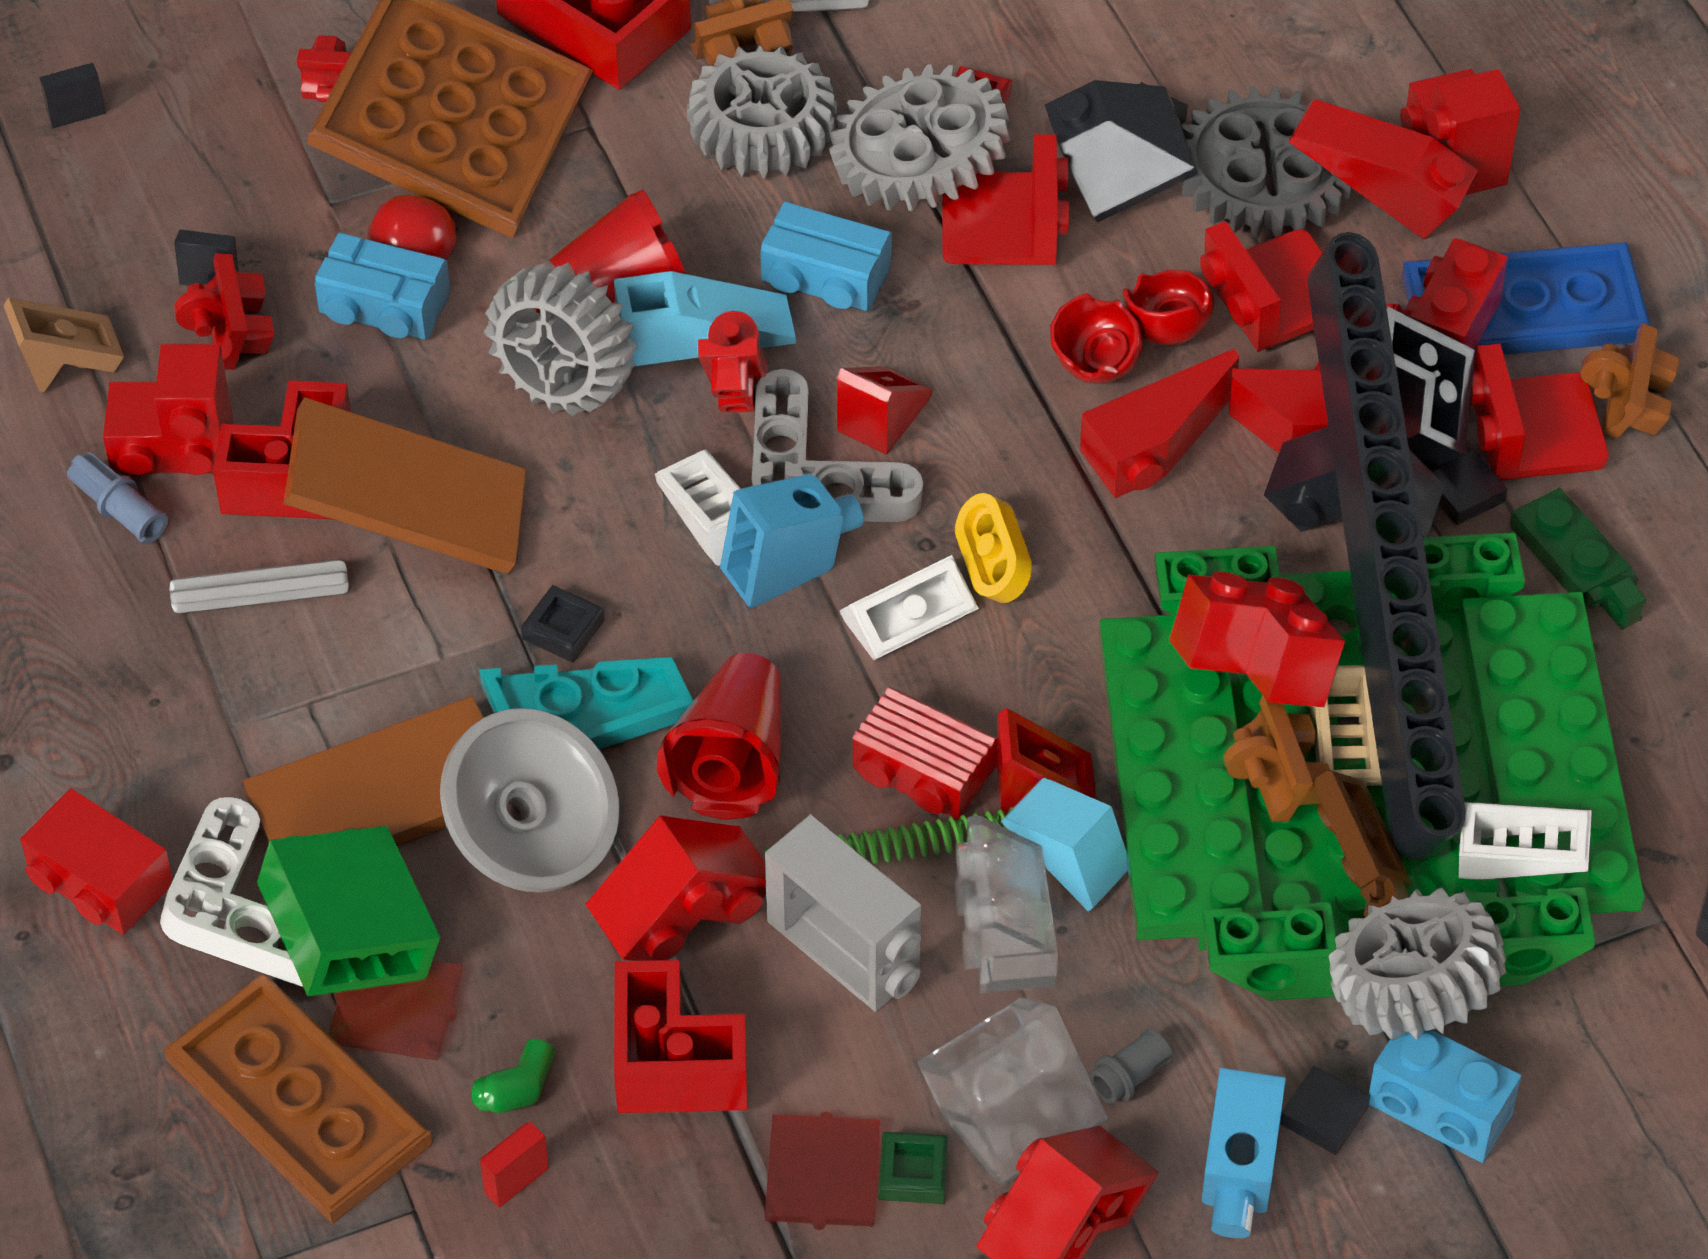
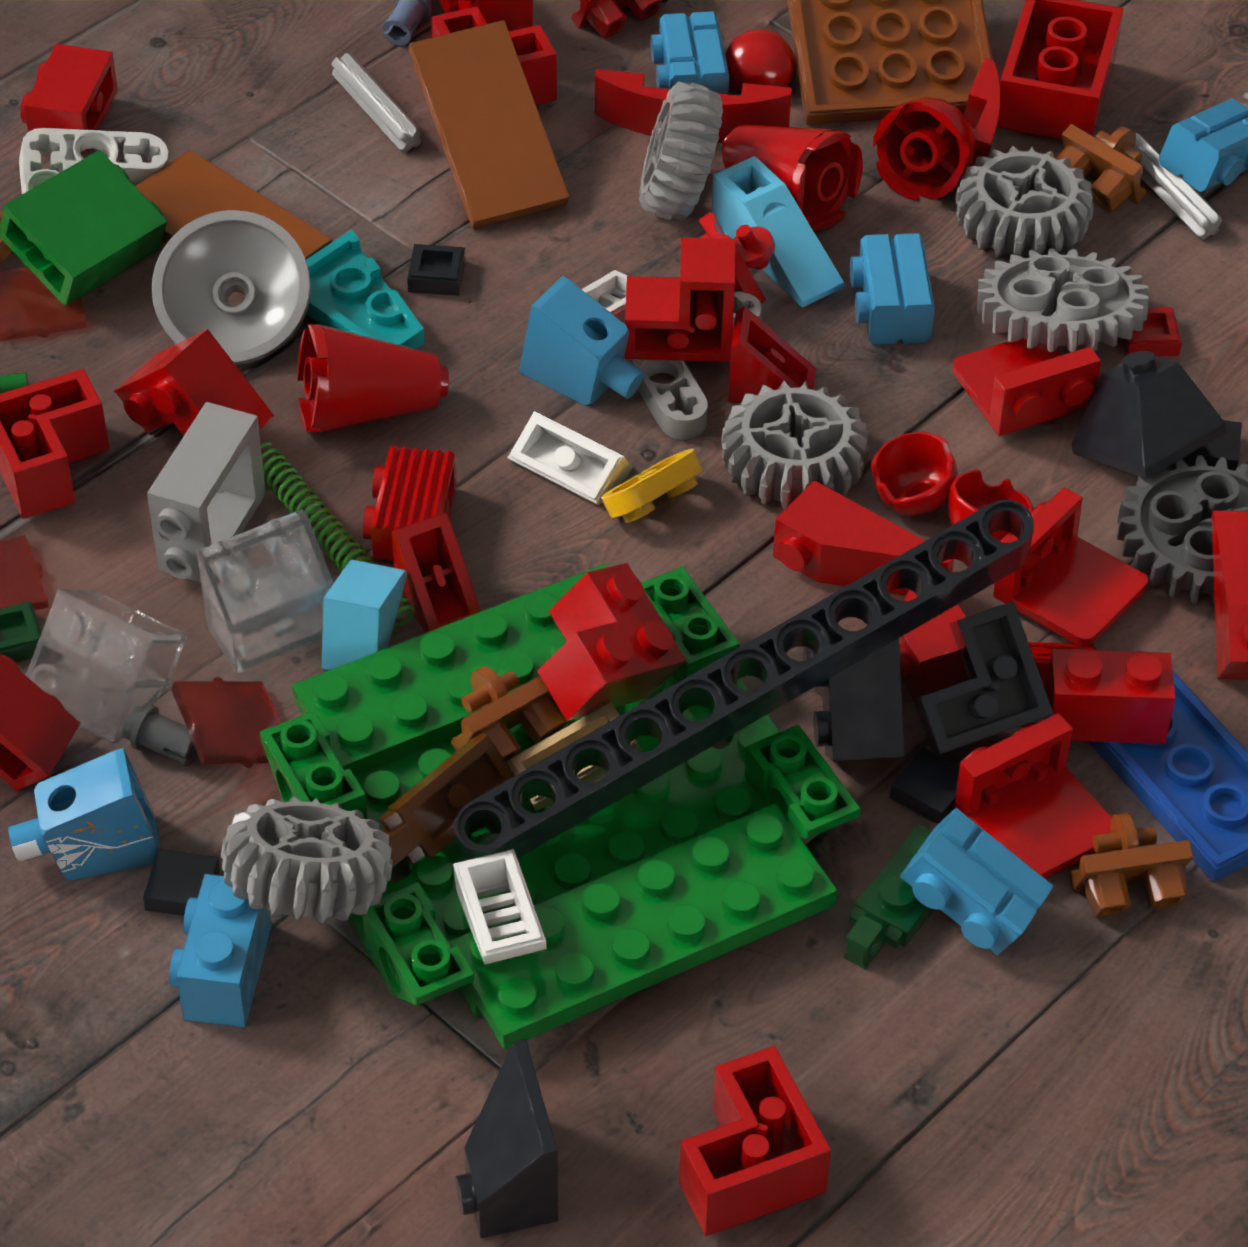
camera: 65 degrees right, 5 degrees down
(418, 361) = (632, 105): none -> red slope
(617, 78) = (984, 107): none -> red slope
(651, 146) = (924, 148): none -> red cylinder
(805, 412) = (688, 314): none -> red brick
(1000, 418) = (790, 439): none -> light grey gear
(1144, 1000) = (226, 719): none -> clear red piece
(1617, 489) = (976, 882): none -> dark azure brick

